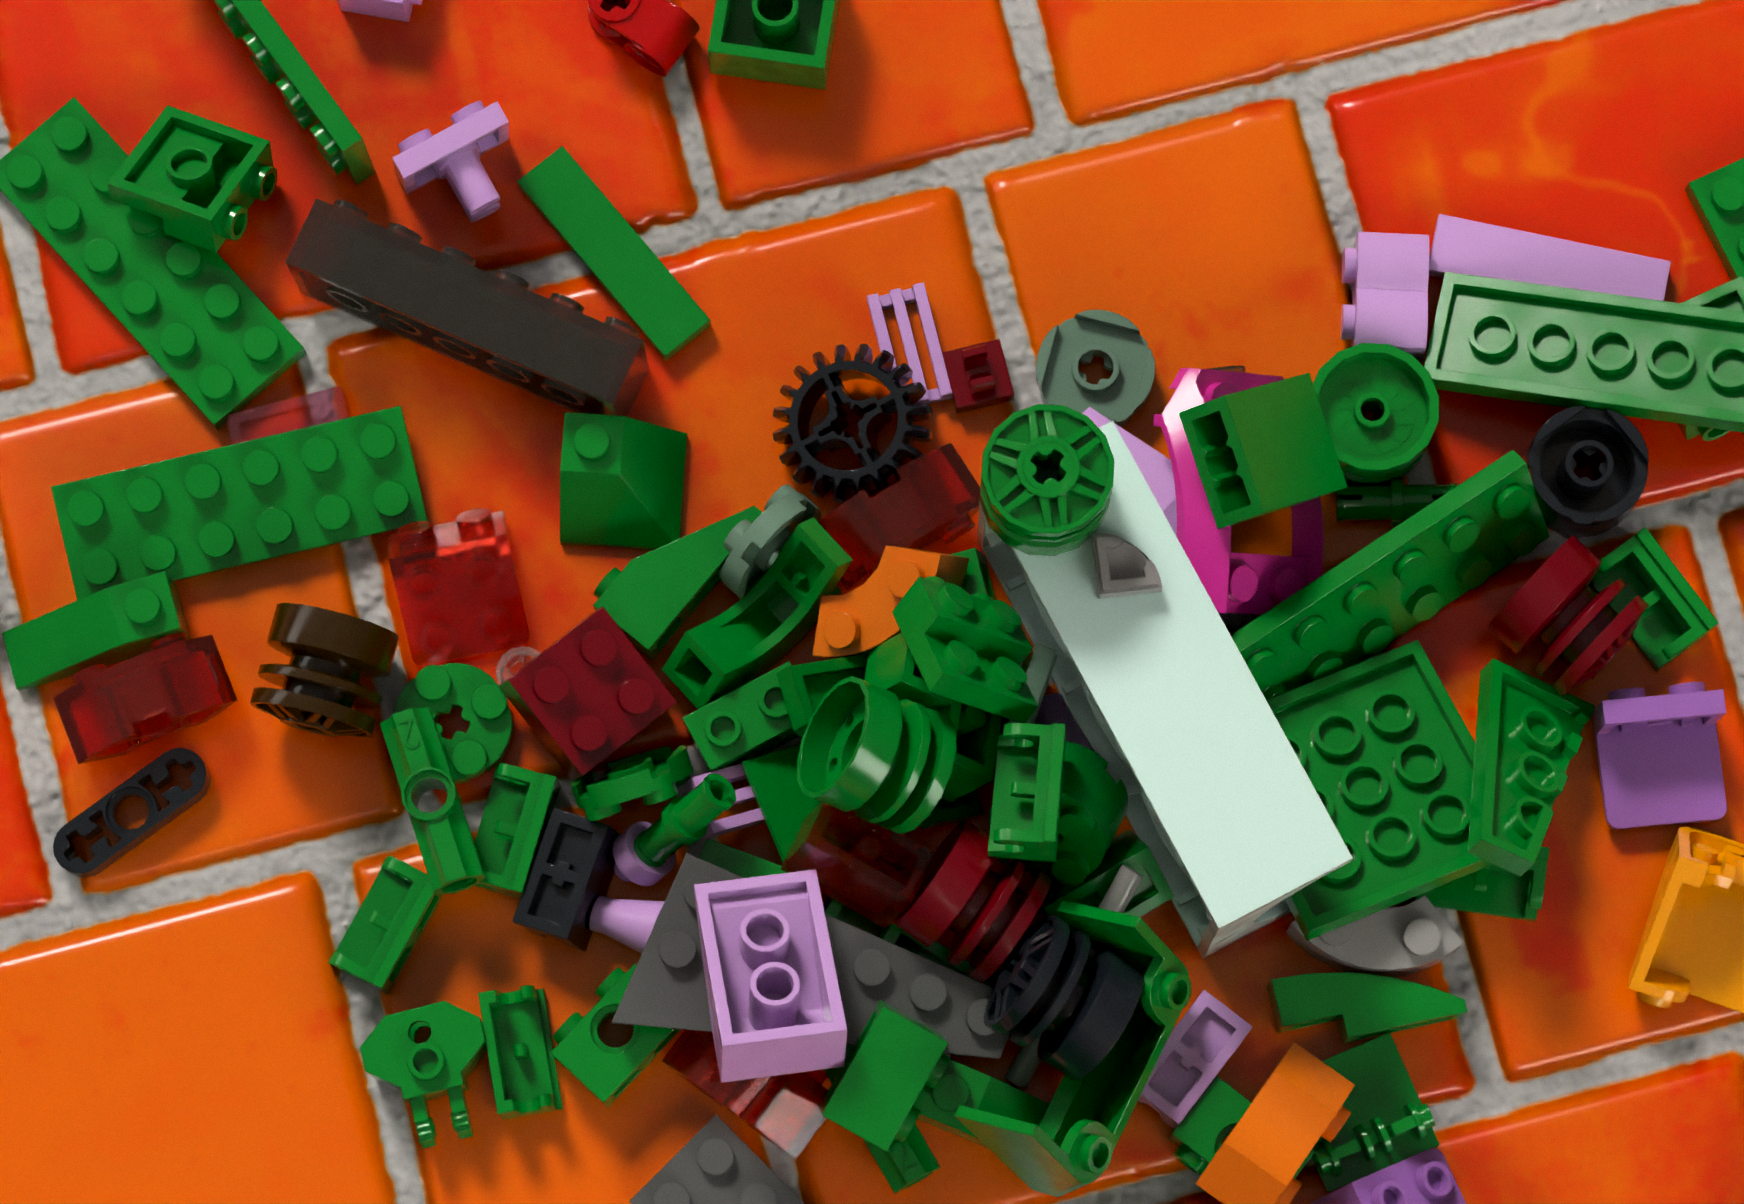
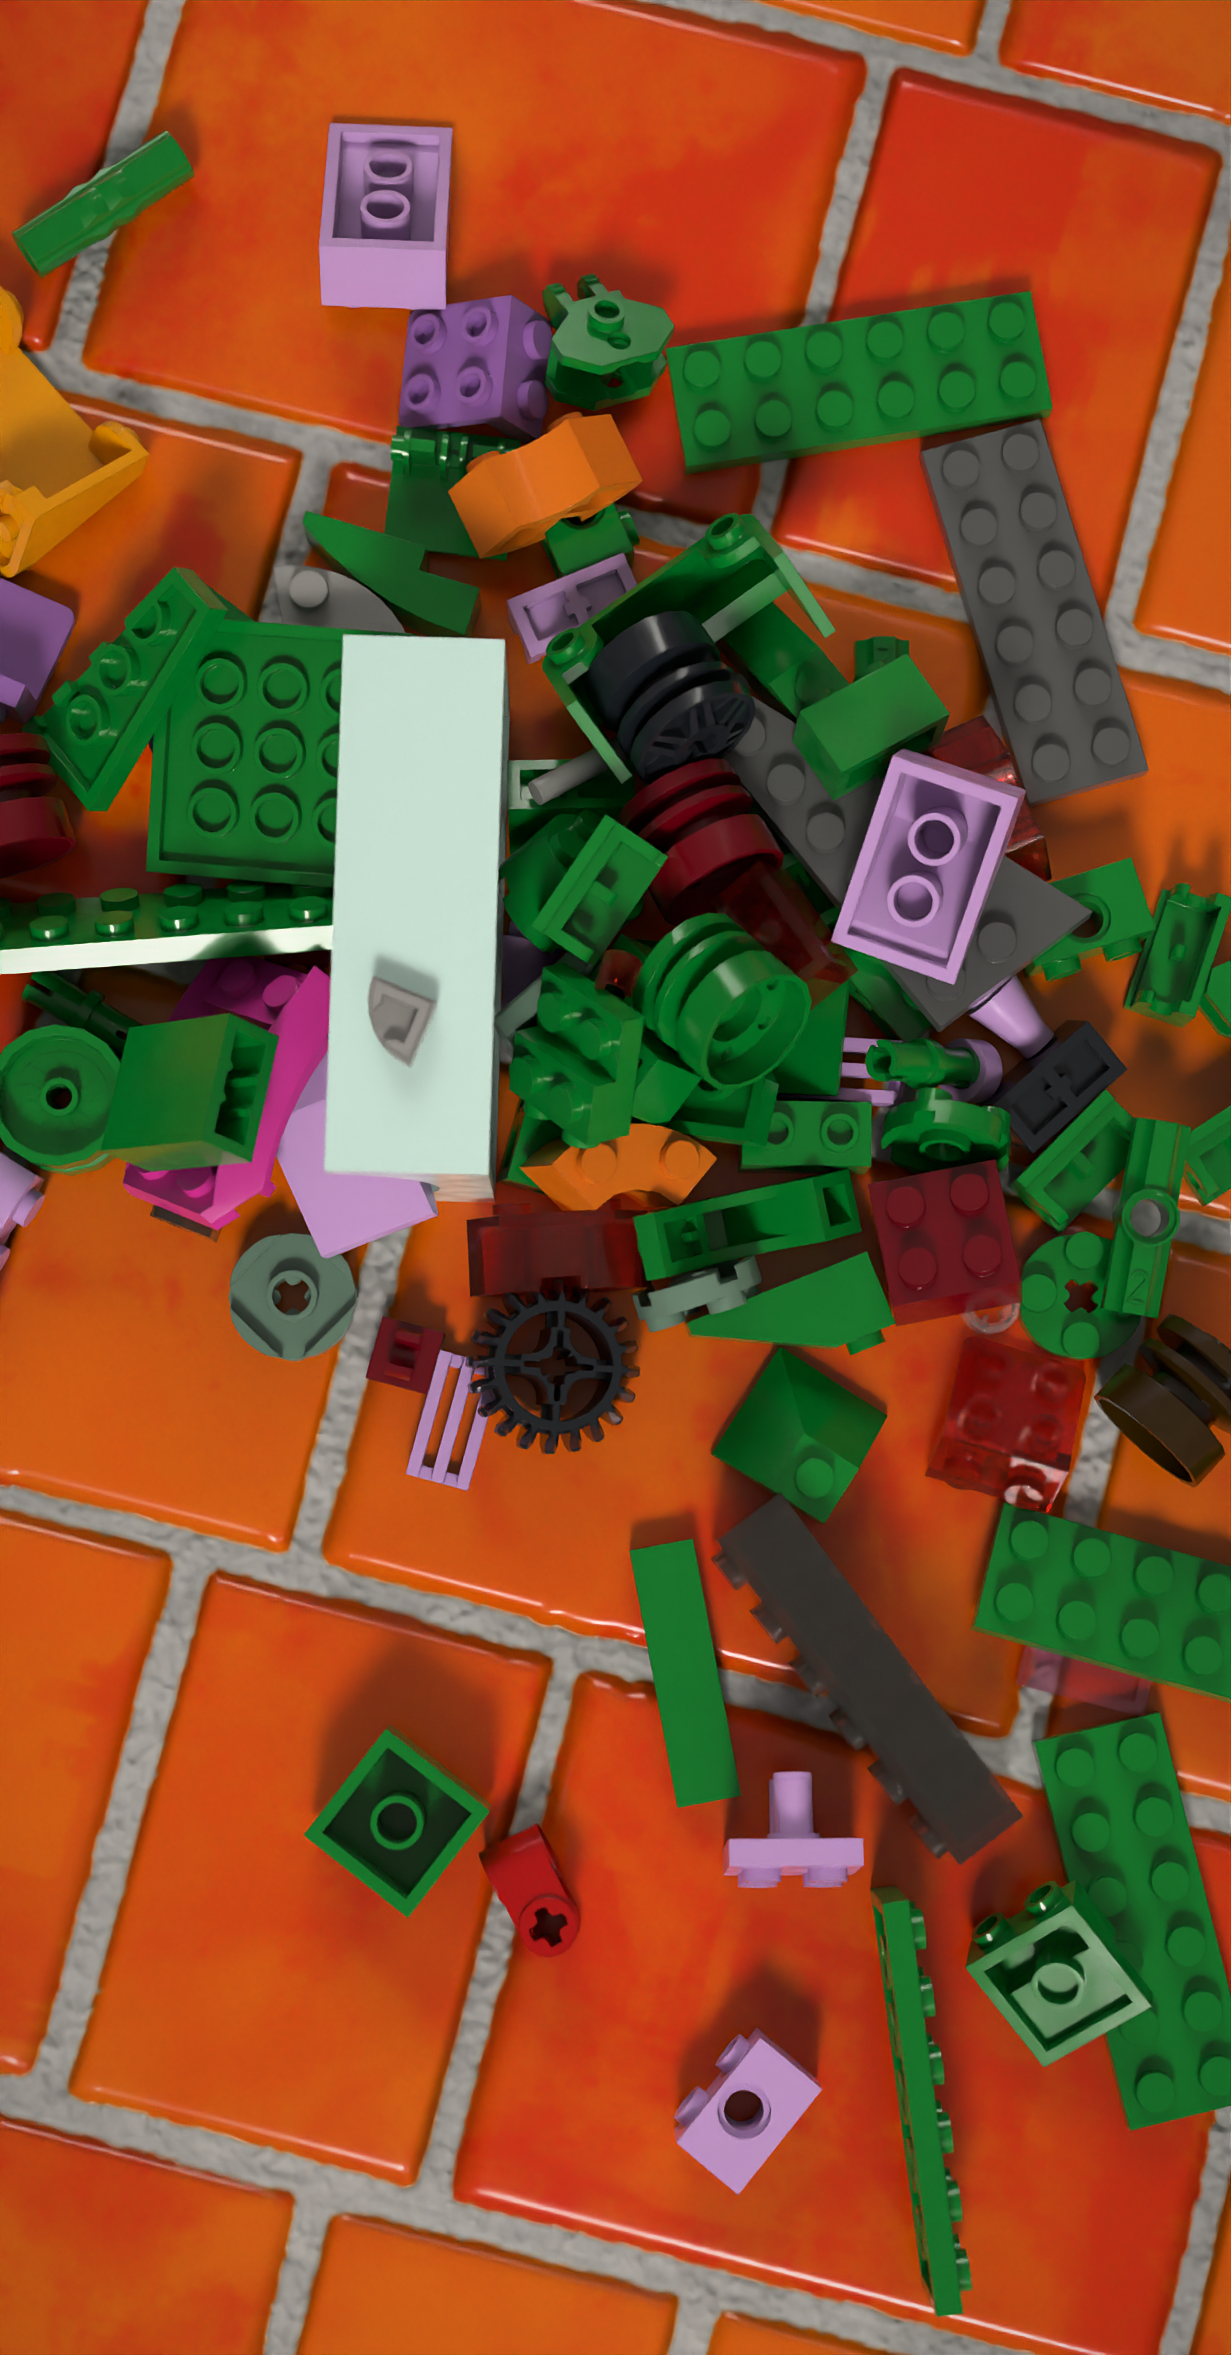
camera: 160 degrees left, 5 degrees up
(975, 732) = (619, 970): none -> clear red hand
(1054, 514) = (405, 1164): green wheel -> none

